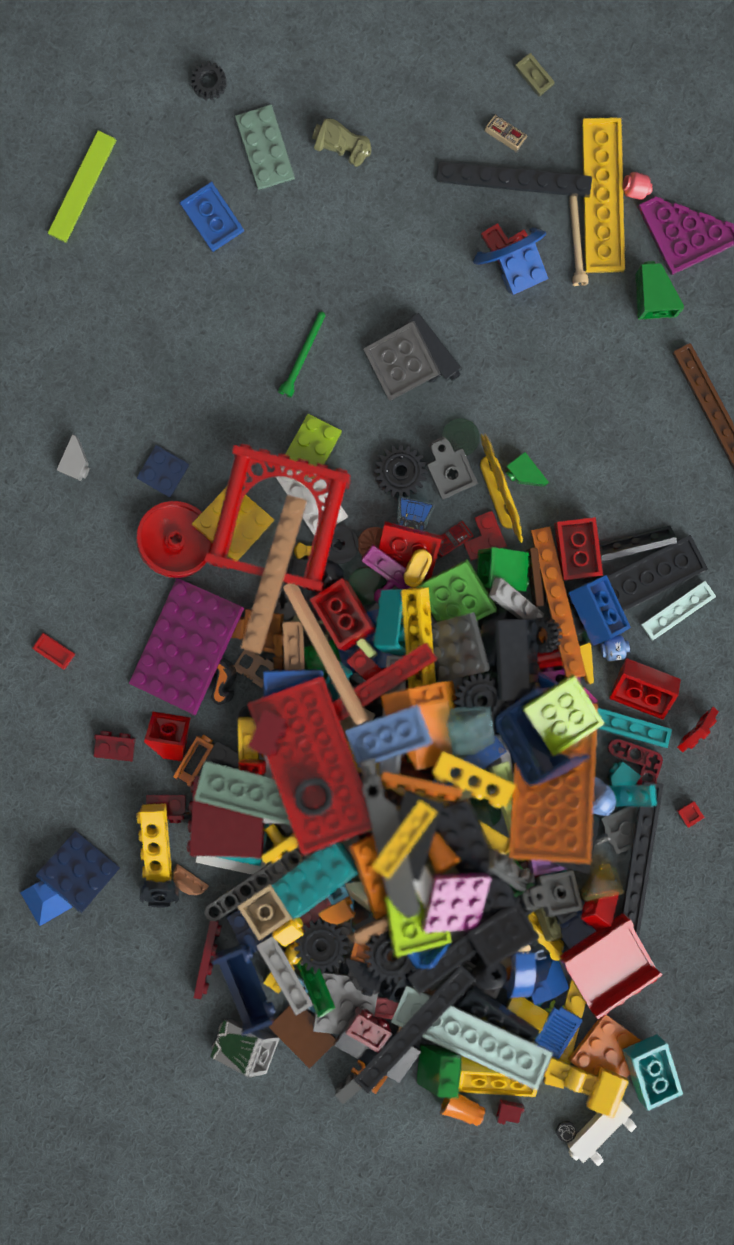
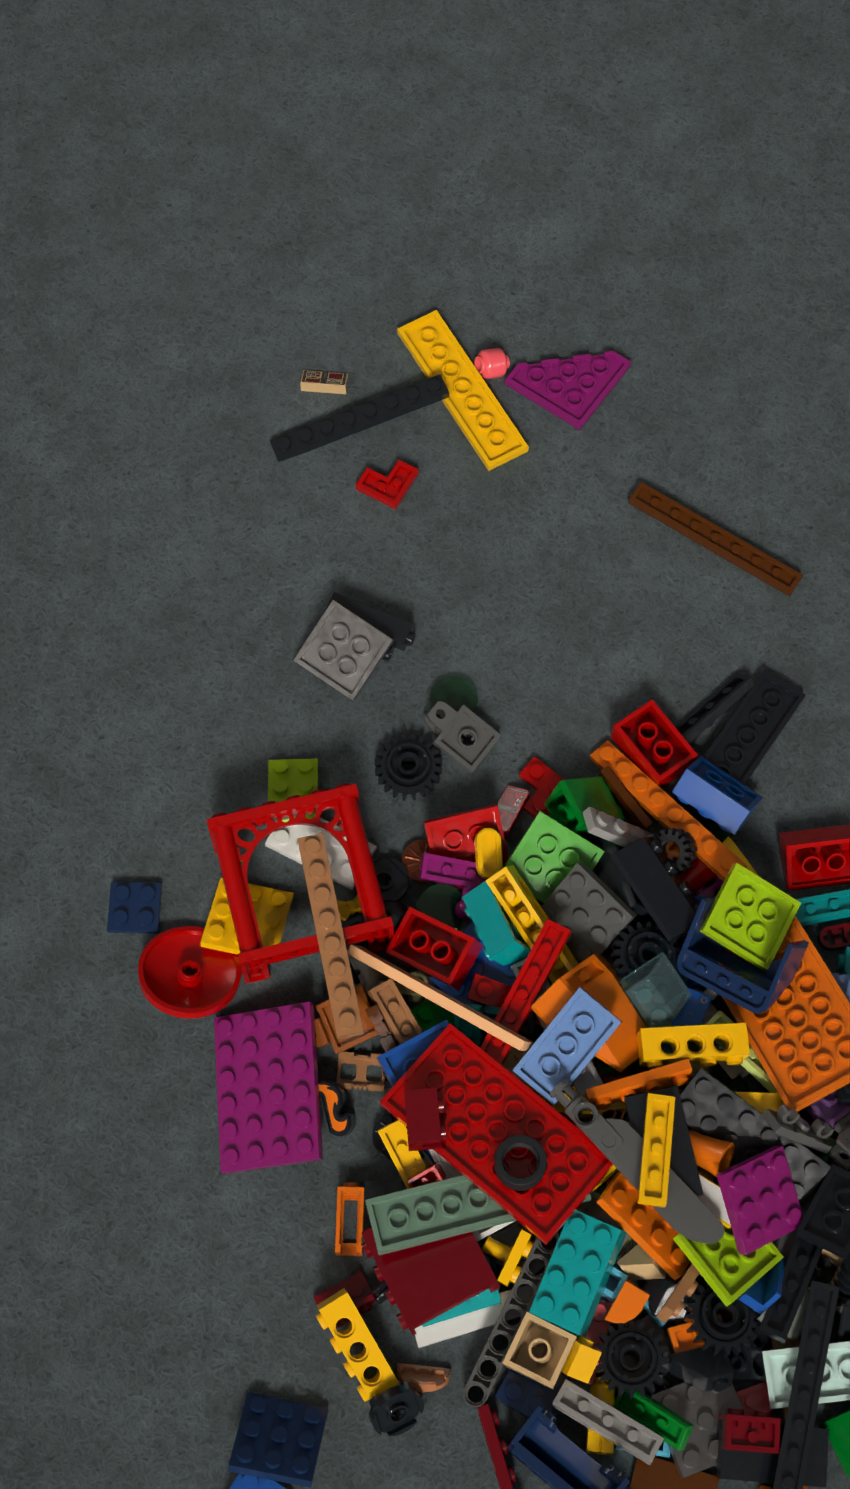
camera: 25 degrees left, 20 degrees down
(53, 651) = (108, 1184): red tile -> none
(74, 460) = (23, 948): light grey slope -> none
(114, 747) = (242, 1258): dark red bracket -> none
(168, 735) = (302, 1207): red slope -> none
(212, 216) = (49, 612): blue plate -> none
(264, 147) = (71, 516): sand green plate -> none
(288, 387) = (230, 742): green piece -> none
(337, 138) = (147, 468): olive animal -> none
(367, 648) = (482, 969): yellowish green tile -> none
(414, 513) = (447, 799): torso -> none
(499, 489) = (524, 722): yellow plant -> none
(519, 262) = (413, 489): blue piece -> none
(525, 472) = (547, 697): green slope -> none
(534, 74) = (322, 313): olive plate -> none
(579, 275) = (484, 475): tan piece -> none
(615, 648) = (759, 830): medium blue head -> none
(656, 293) = (576, 450): green slope -> none
(678, 610) = (801, 755): light aqua plate -> none

